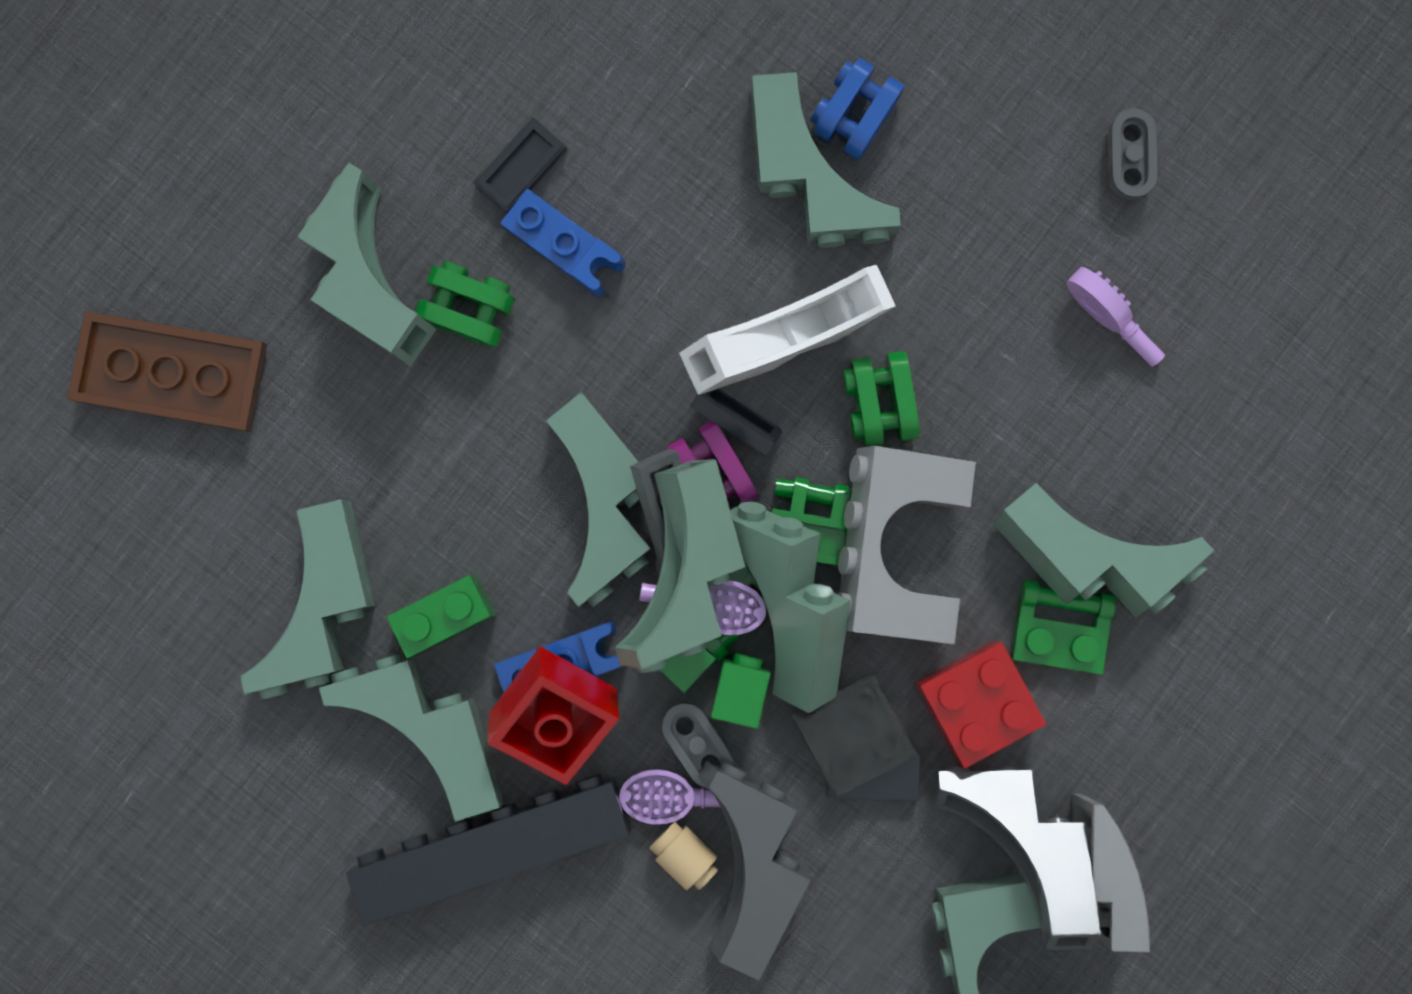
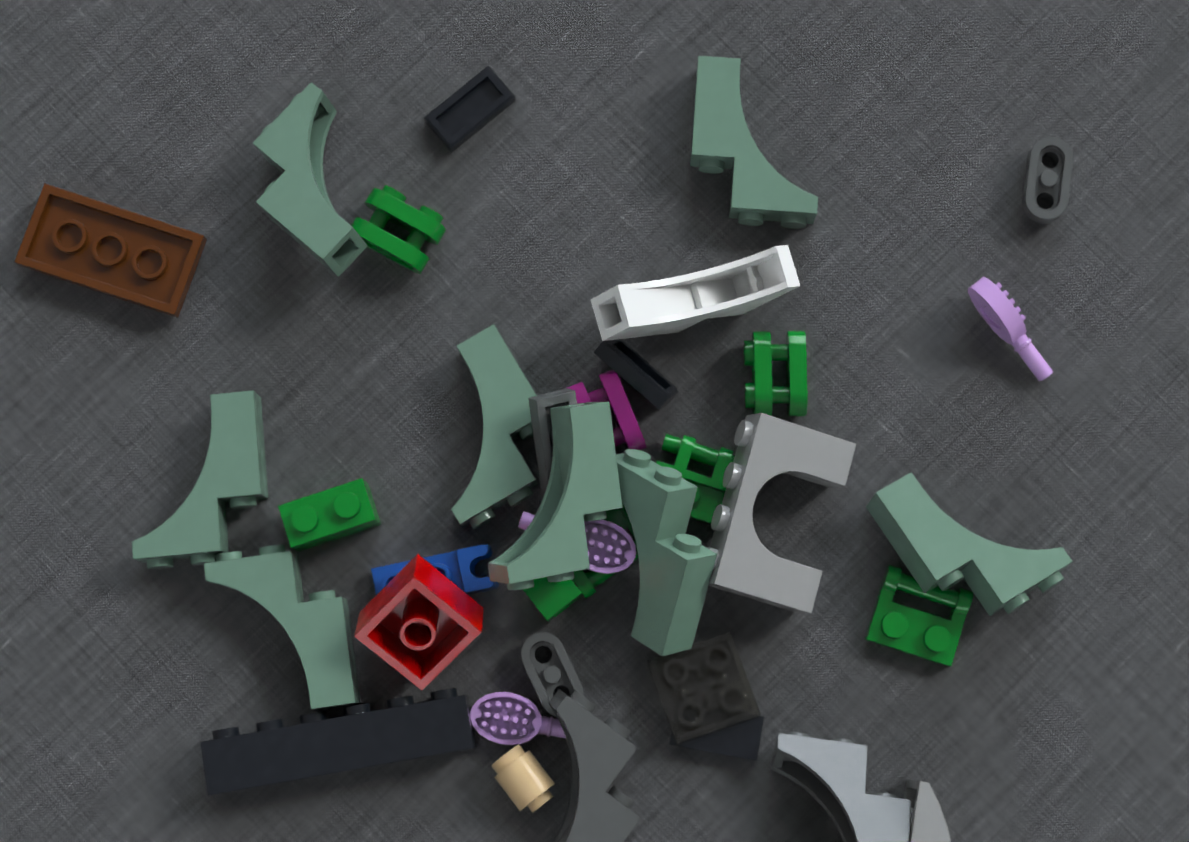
camera: 15 degrees right, 5 degrees down
(561, 241) = (497, 184): blue plate -> none
(740, 690) = (600, 624): green brick -> none
(852, 83) = (769, 103): blue brick -> none
(979, 703) = (827, 675): red brick -> none

